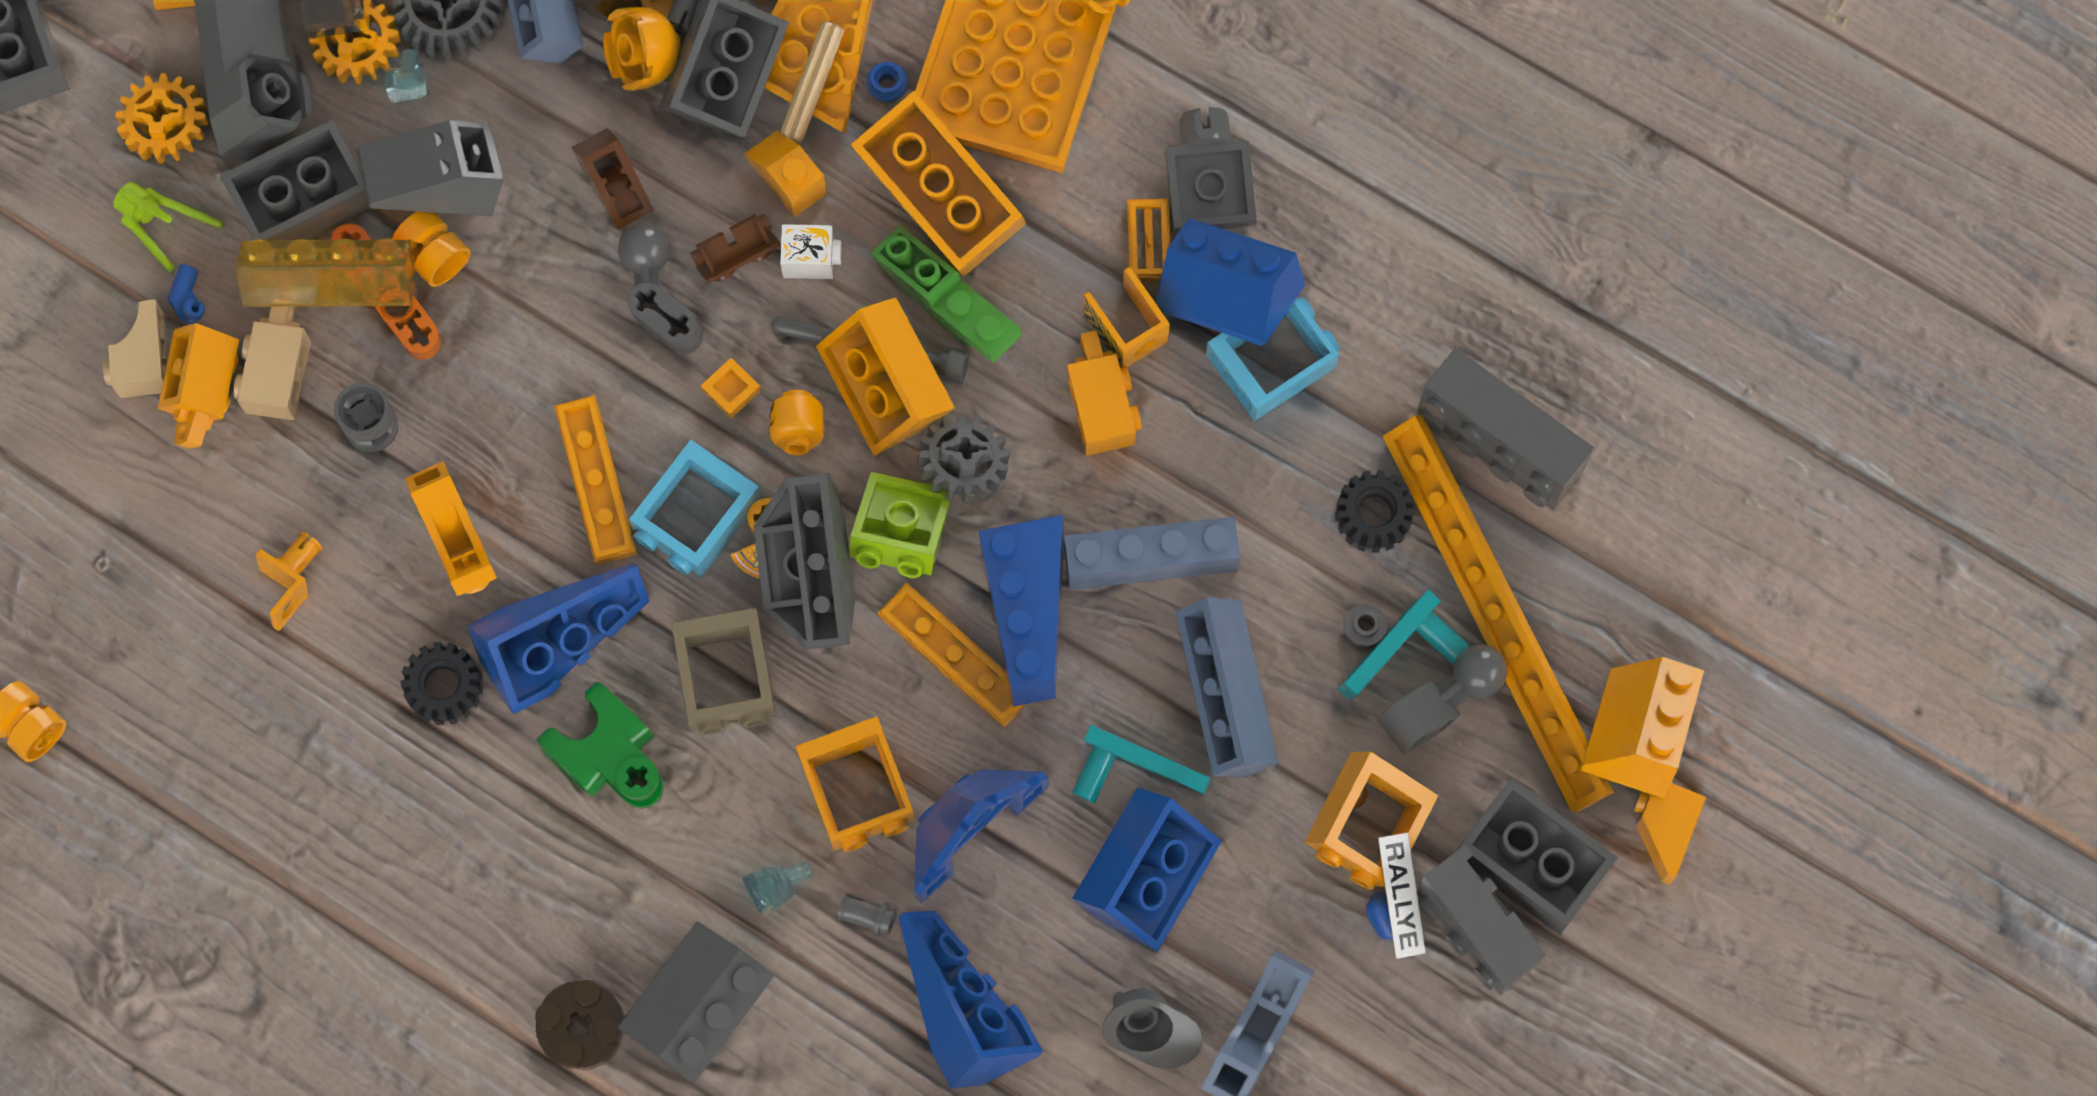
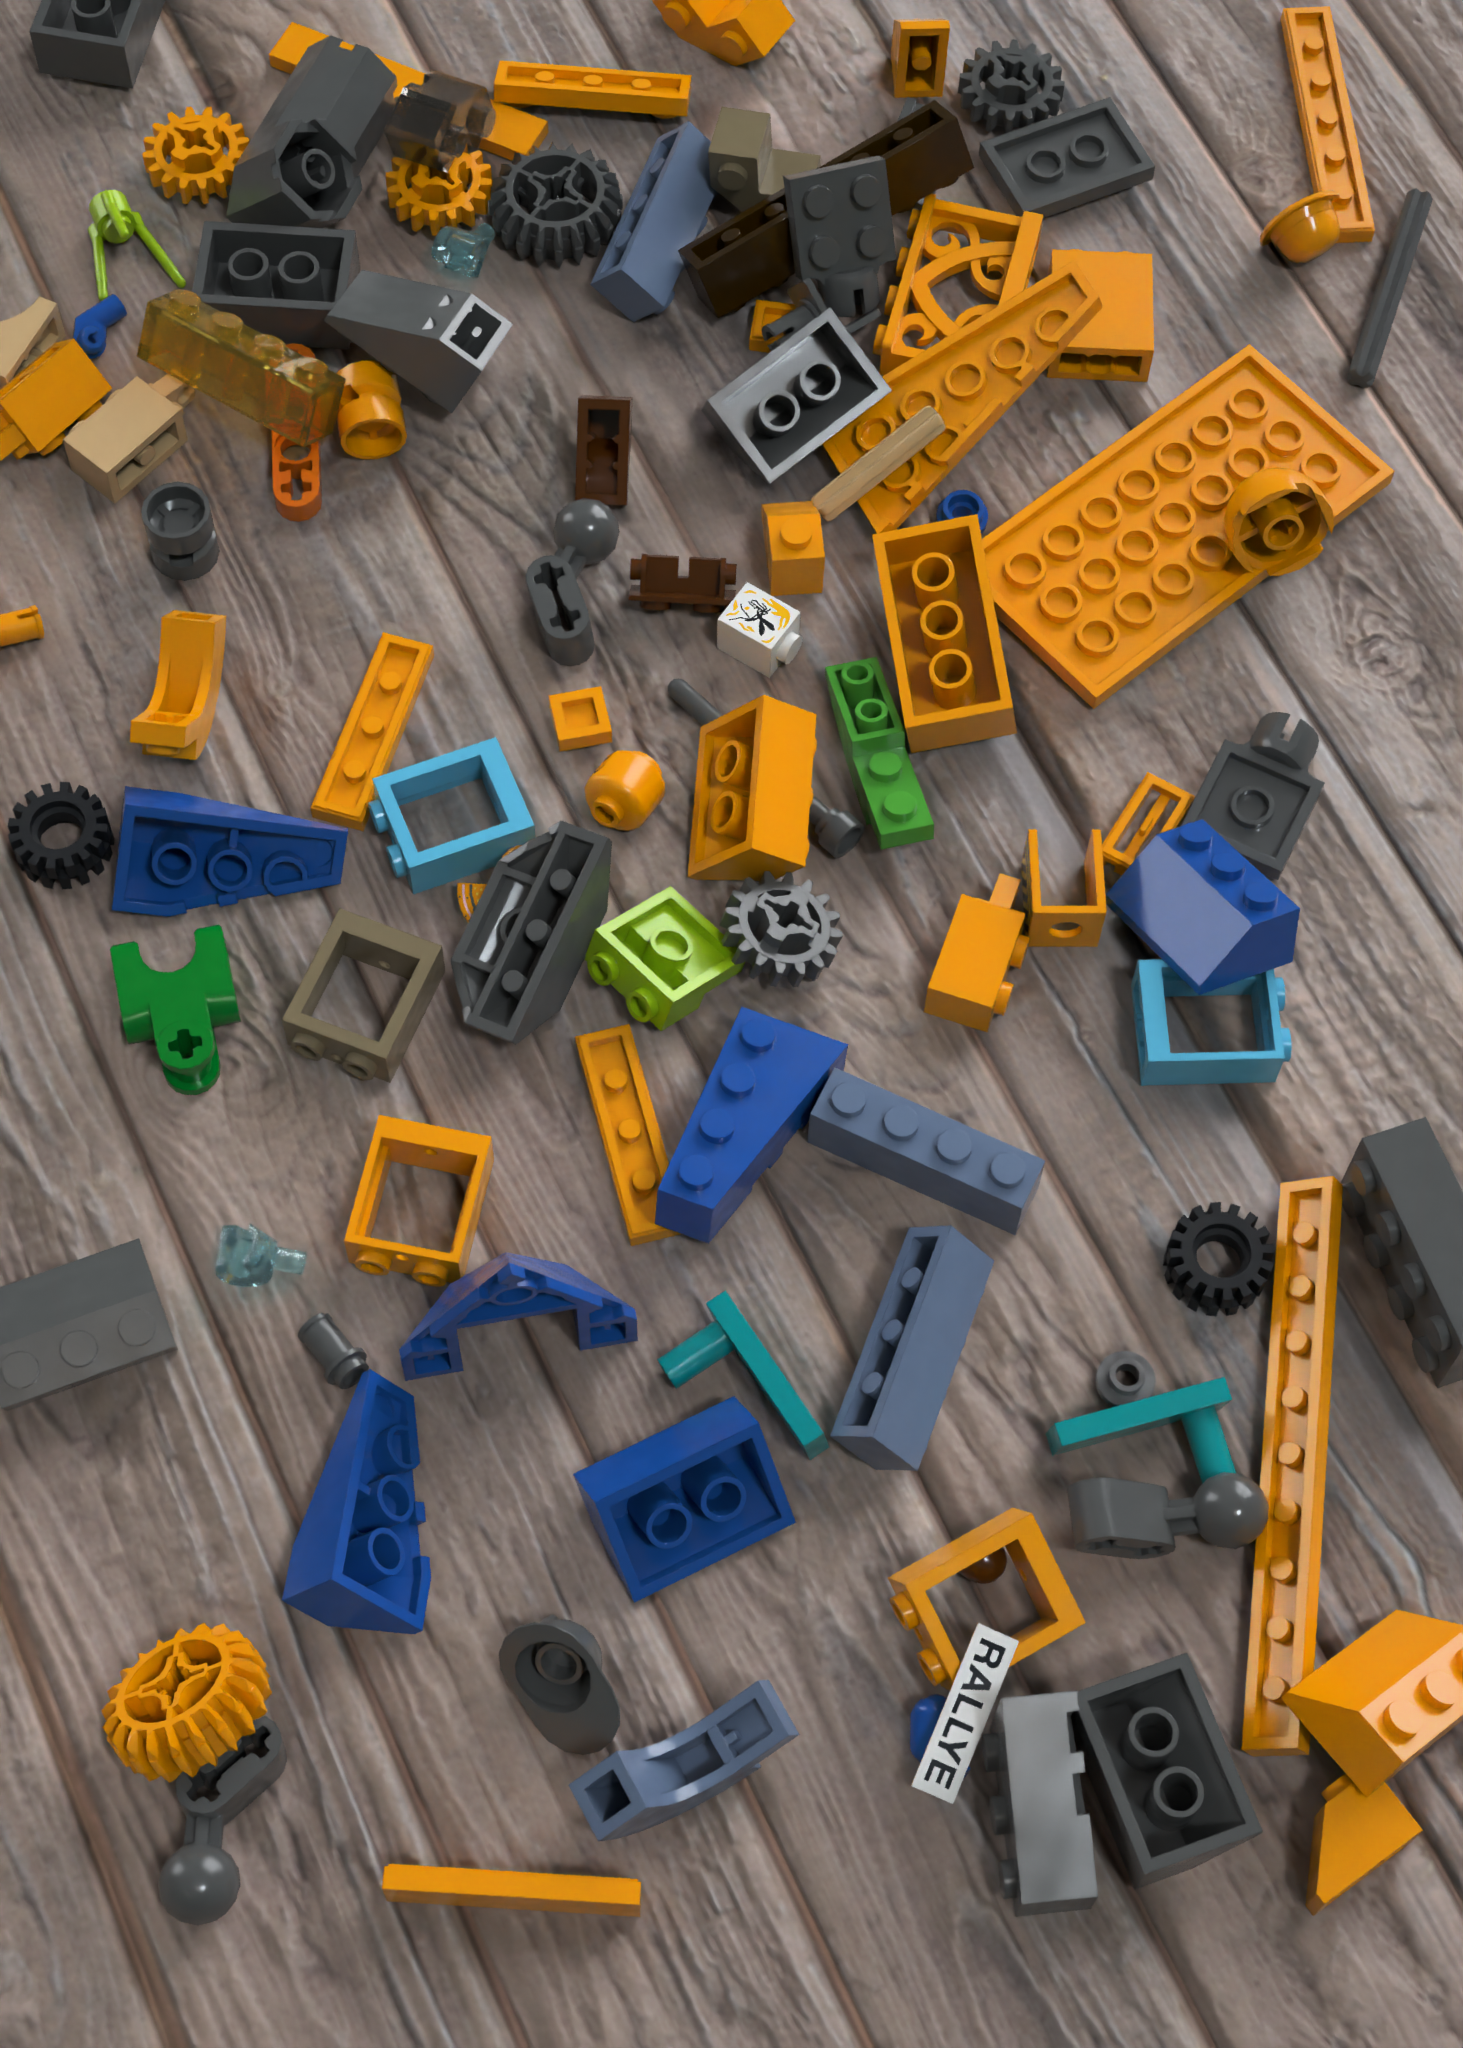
camera: 30 degrees right, 10 degrees down
(640, 47) = (722, 337): light orange cylinder -> none

